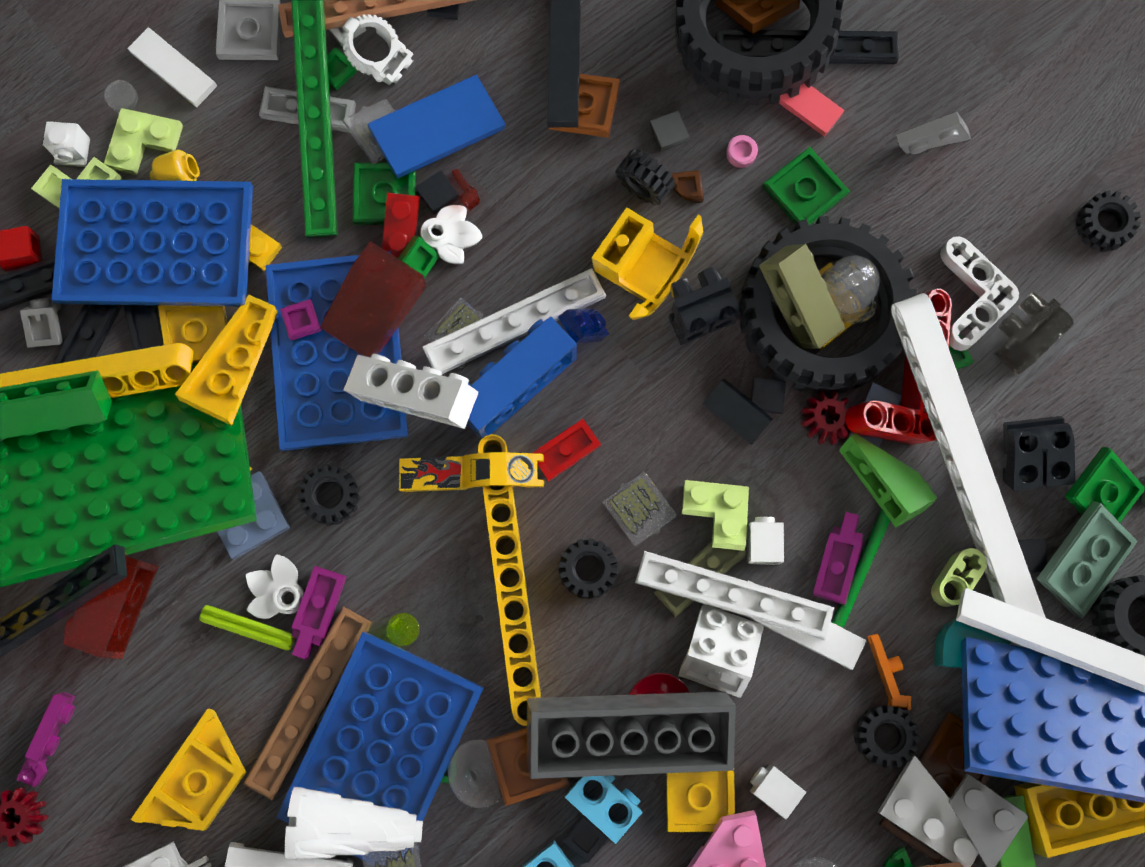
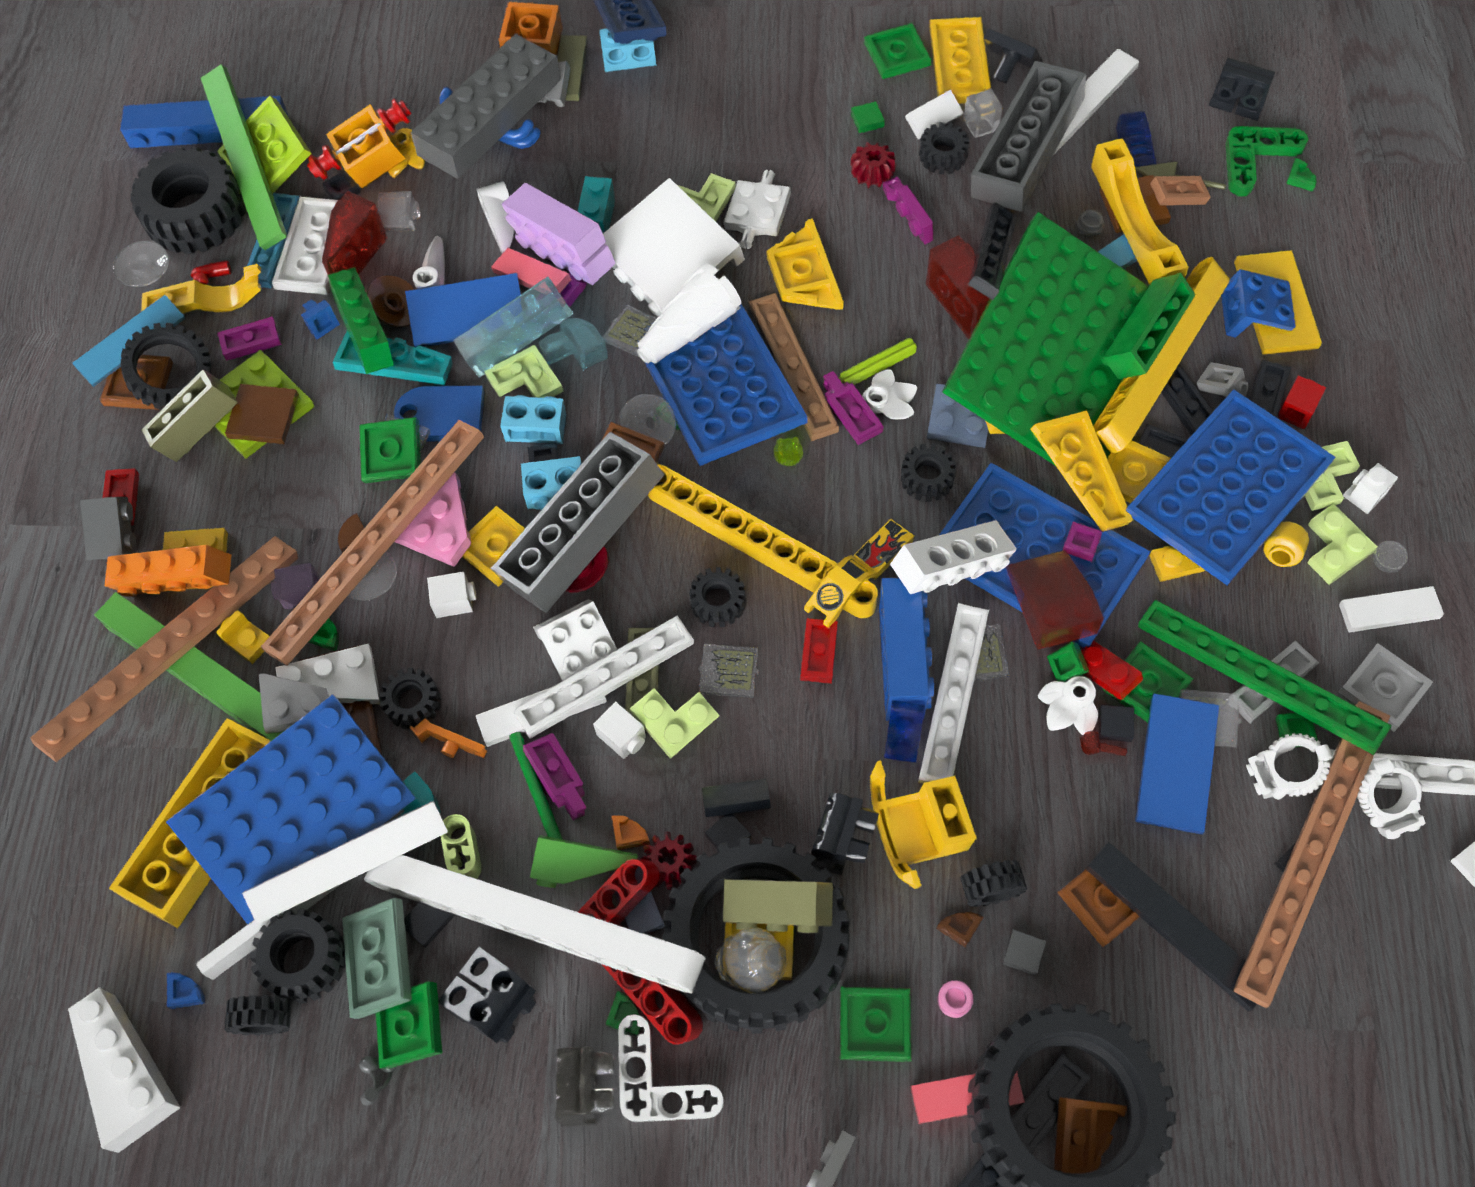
camera: 135 degrees right, 15 degrees down
(830, 469) = (628, 833): none -> orange tile

